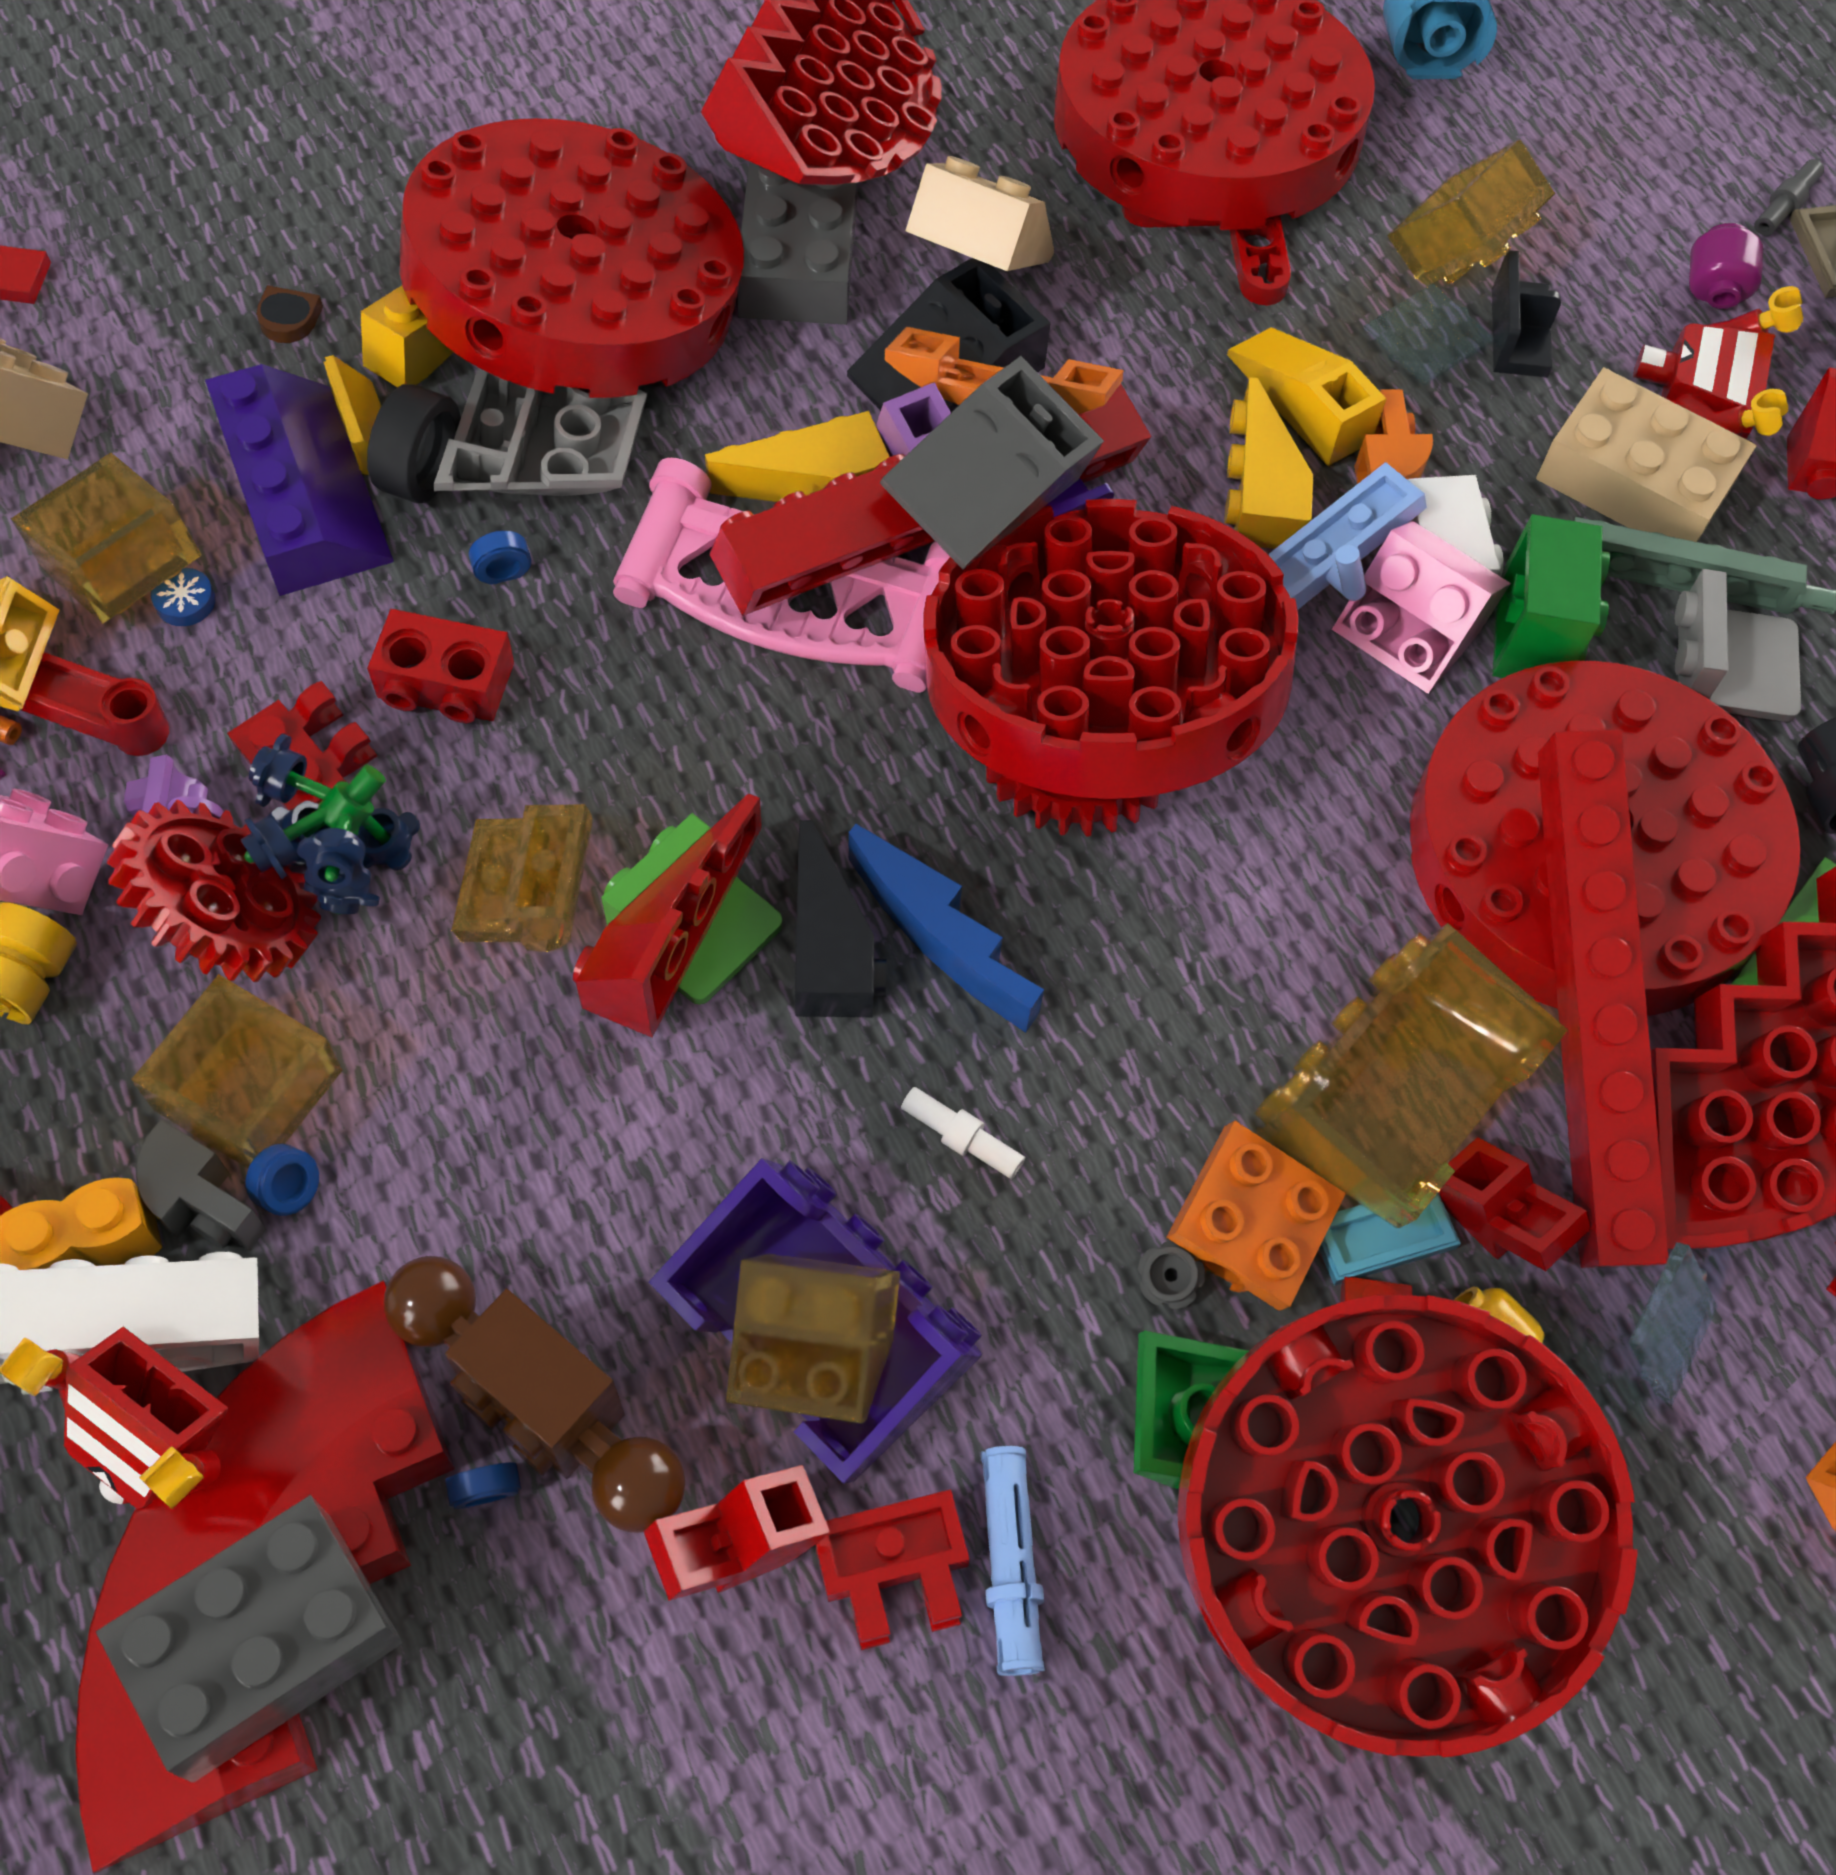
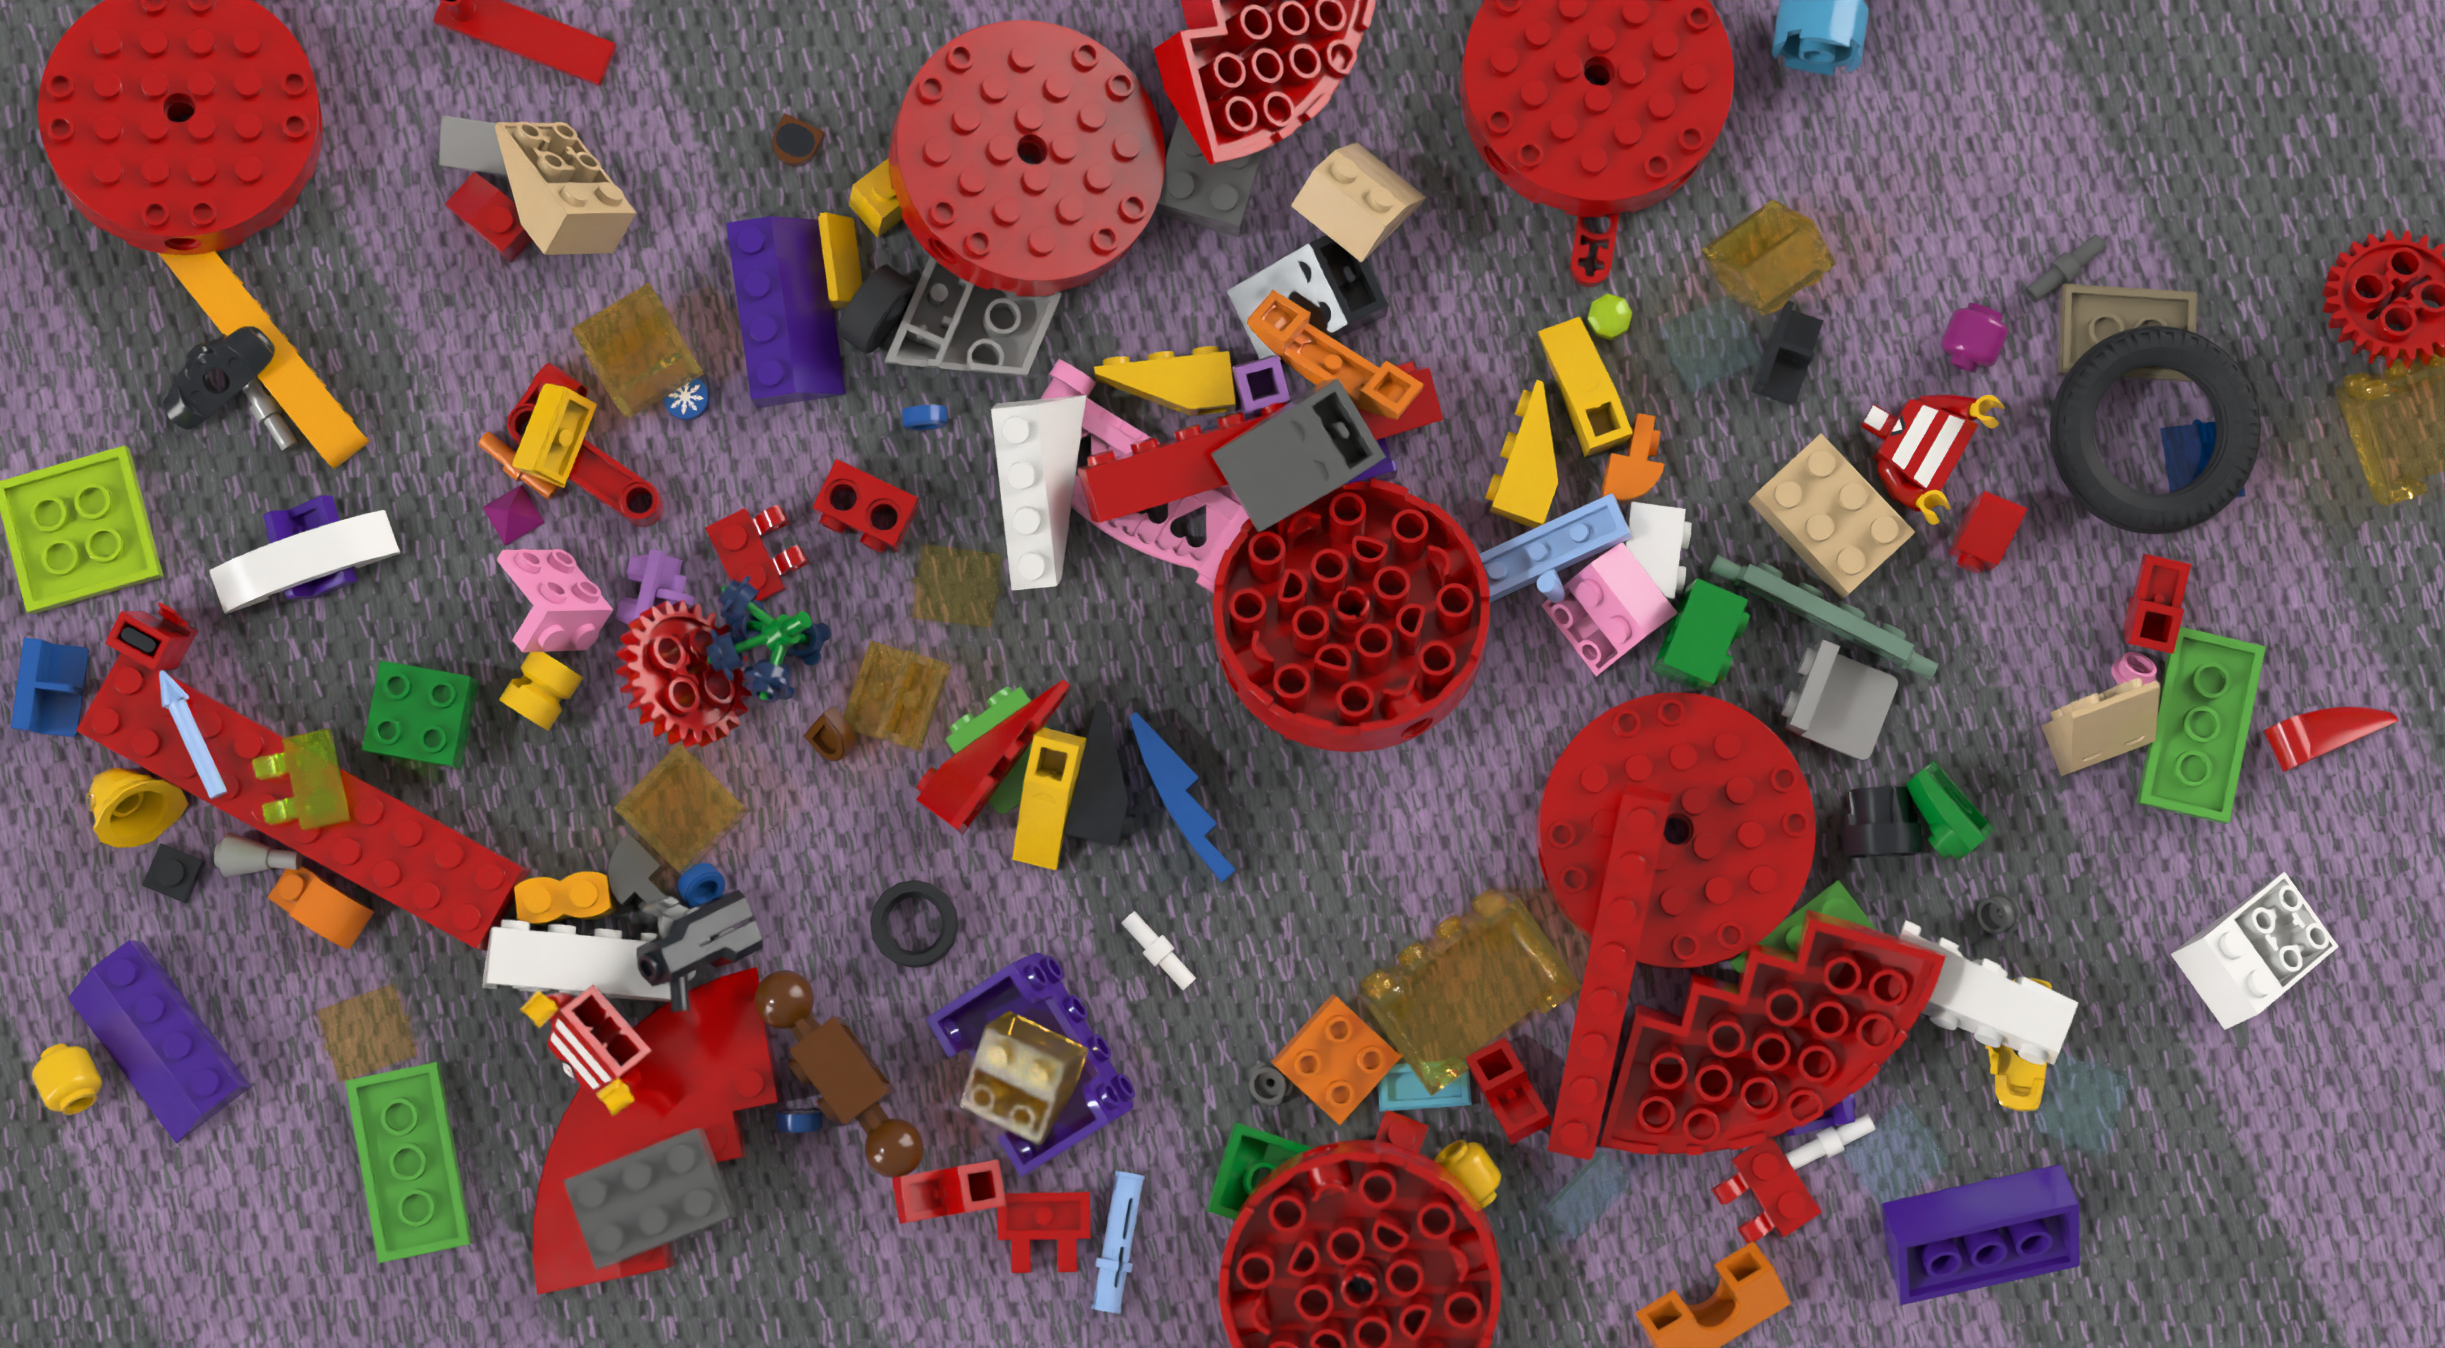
camera: 15 degrees right, 20 degrees up
(277, 1239) = (694, 939): none -> black piece
(441, 945) = (831, 735): none -> reddish brown tile
(579, 744) = (956, 586): none -> clear yellow piece
(589, 1121) = (881, 914): none -> black tyre
(658, 565) = (1036, 471): none -> white wedge
(760, 953) = (1047, 797): none -> yellow slope
(1306, 320) = (1609, 316): none -> lime tile

